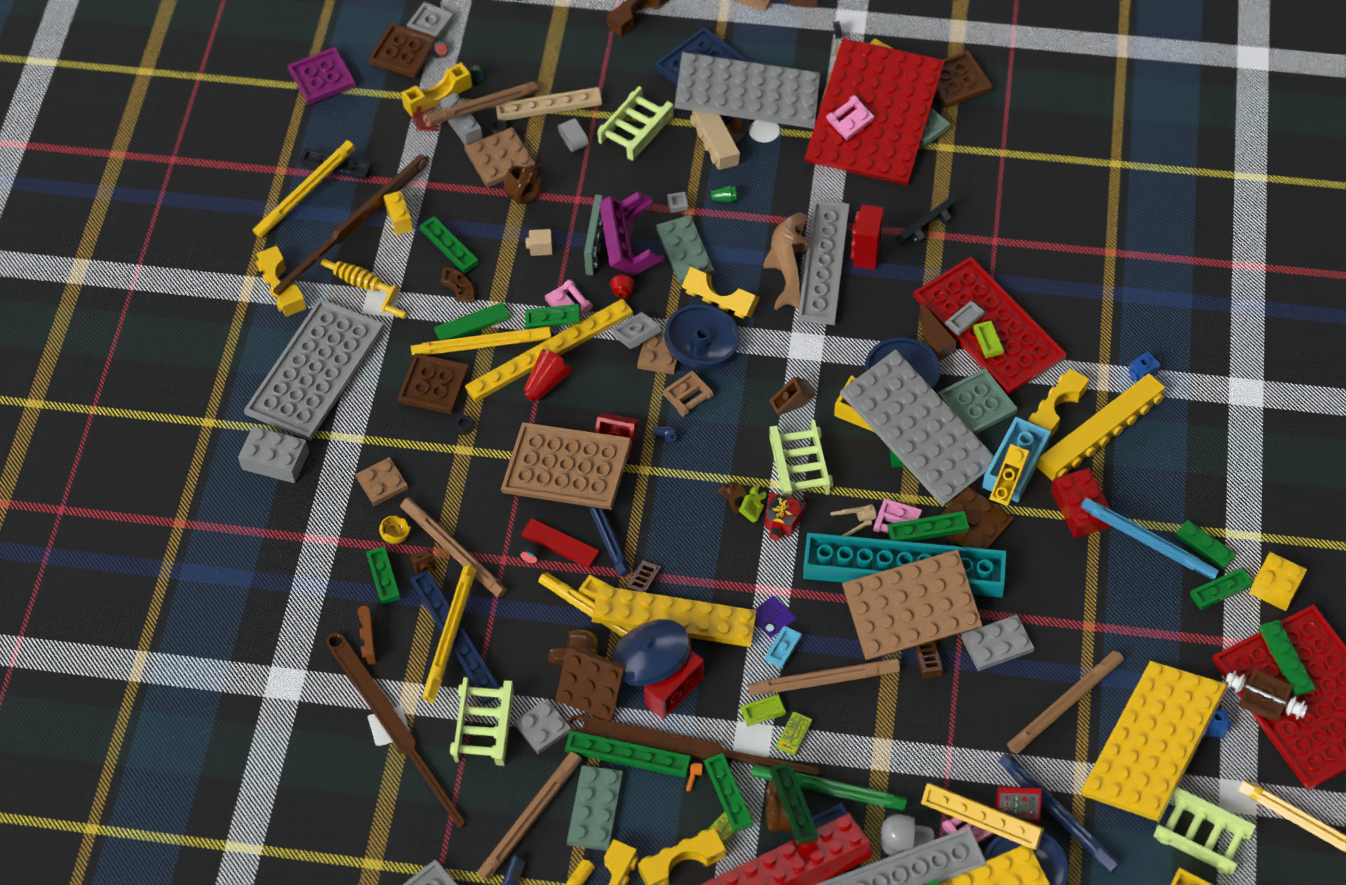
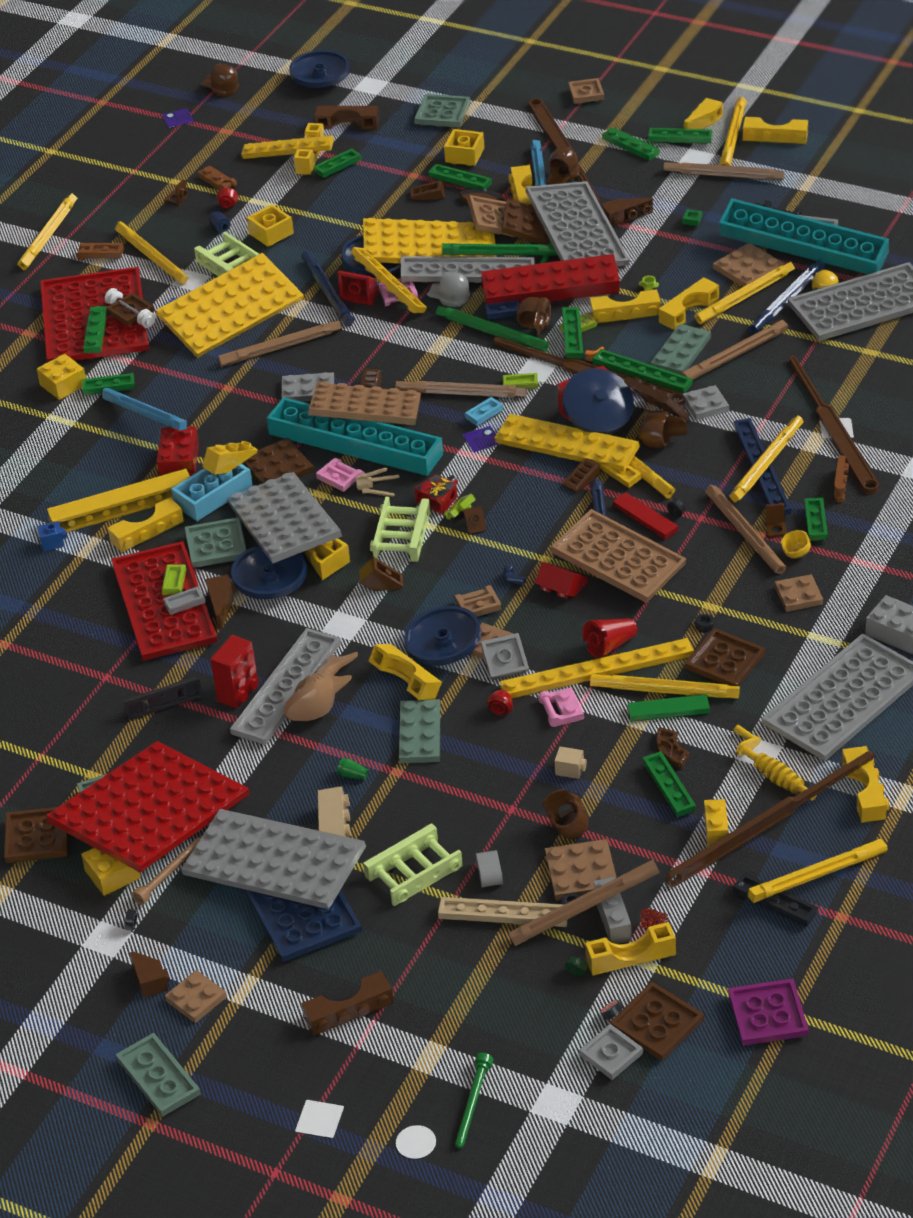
camera: 160 degrees left, 15 degrees down
(500, 732) = (743, 394): yellowish green fence -> none
(553, 316) = (583, 686): green plate -> none
(594, 235) = (509, 745): sand green plate -> none
(618, 223) = (484, 714): magenta piece -> none
(677, 202) = (406, 773): light grey plate -> none
(794, 733) = (502, 363): lime tile -> none
(794, 804) = (527, 295): dark green plate -> none
(853, 122) = (181, 792): bright pink plate -> none
(928, 527) = (319, 451): green plate -> none
(1205, 545) = (97, 415): green plate -> none

